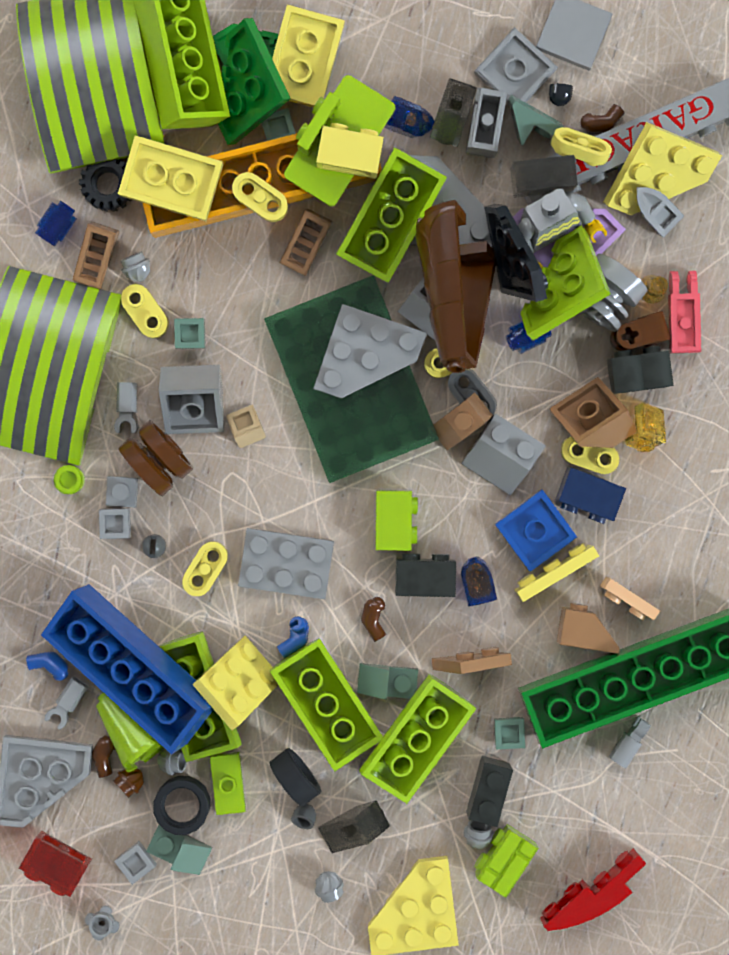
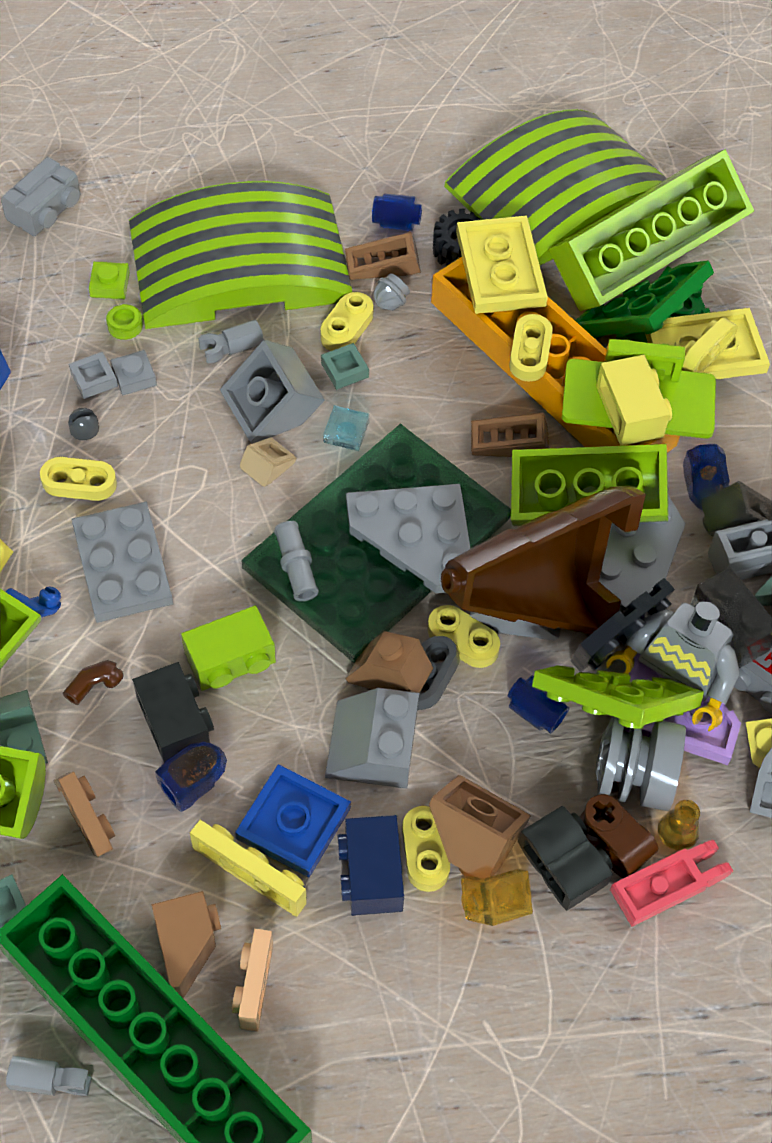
camera: 65 degrees right, 30 degrees down
(22, 475) = (109, 280): none -> lime plate
(154, 459) = (185, 371): reddish brown wheel -> none
(247, 358) = (346, 428): none -> clear light blue plate
(311, 51) = (712, 343): none -> light yellow plate
(353, 448) = (296, 561): none -> light grey pin

